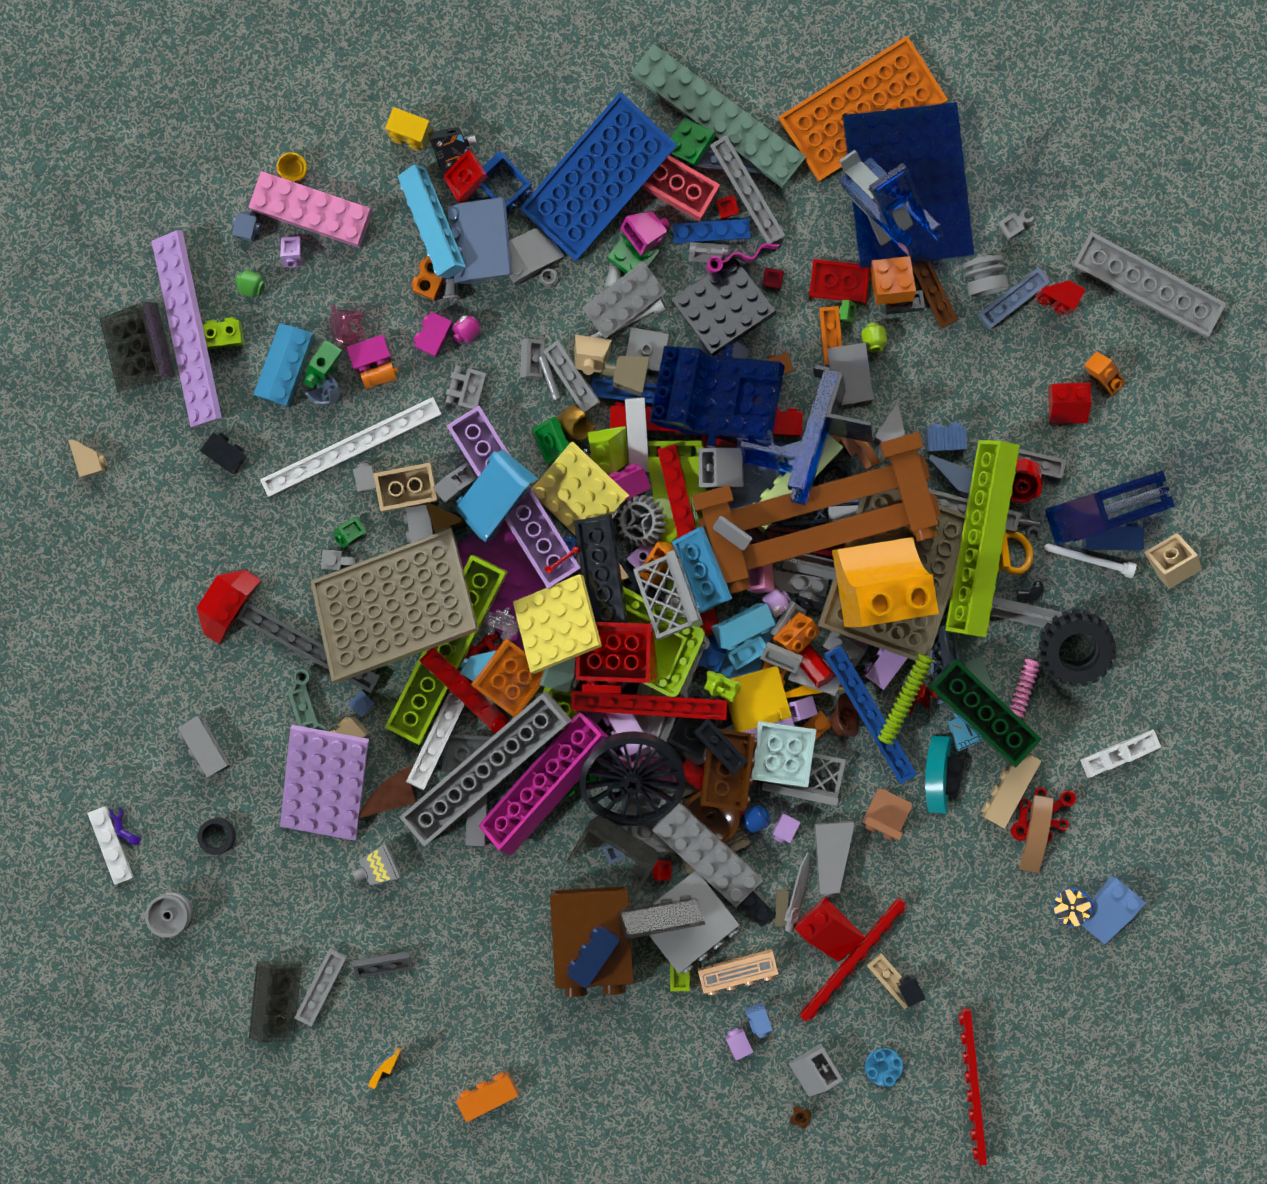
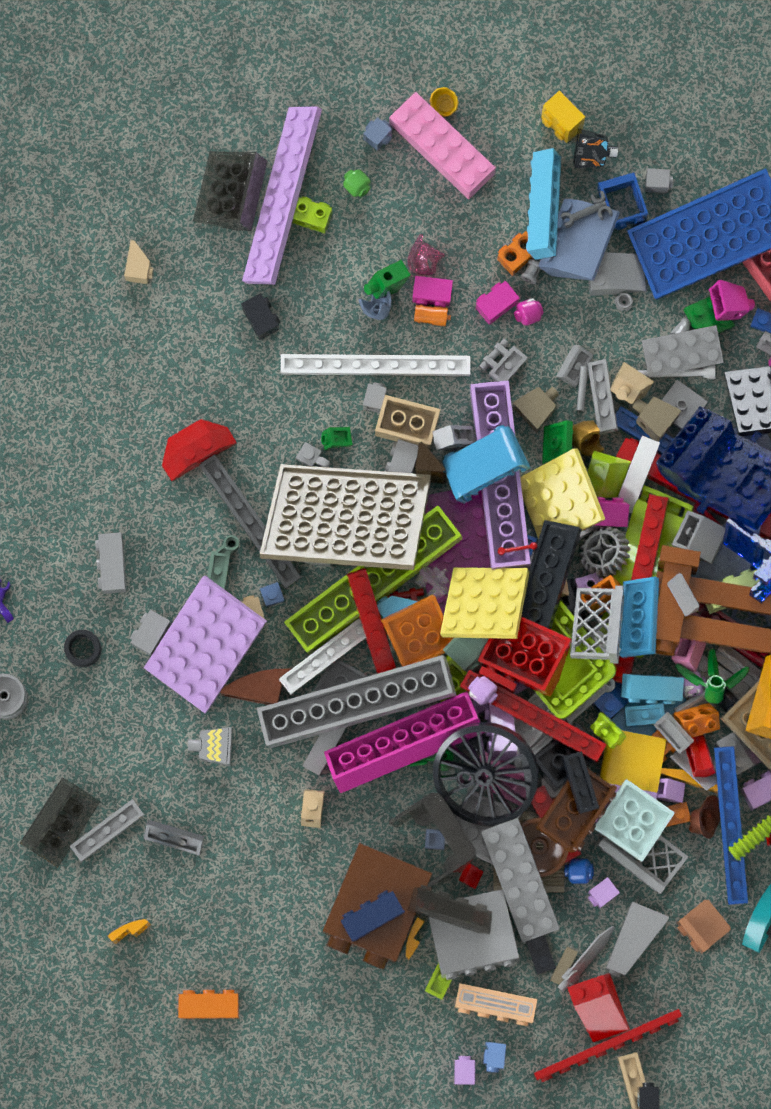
camera: 25 degrees right, 10 degrees down
(270, 792) = (150, 632): none -> light grey brick
(284, 365) = (352, 266): dark azure slope -> none
(291, 252) = (406, 173): lavender bracket -> none
(465, 176) = (593, 179): red plate -> none
(483, 201) = (599, 205): none -> dark grey bar
(492, 877) = (312, 808): none -> tan torso
(516, 415) = (536, 407): none -> dark tan torso
(525, 146) = (658, 180): none -> light grey brick
(594, 706) = (483, 690): none -> lavender head
(639, 954) = (412, 944): none -> light orange slope
(798, 598) = (715, 685): none -> green plant

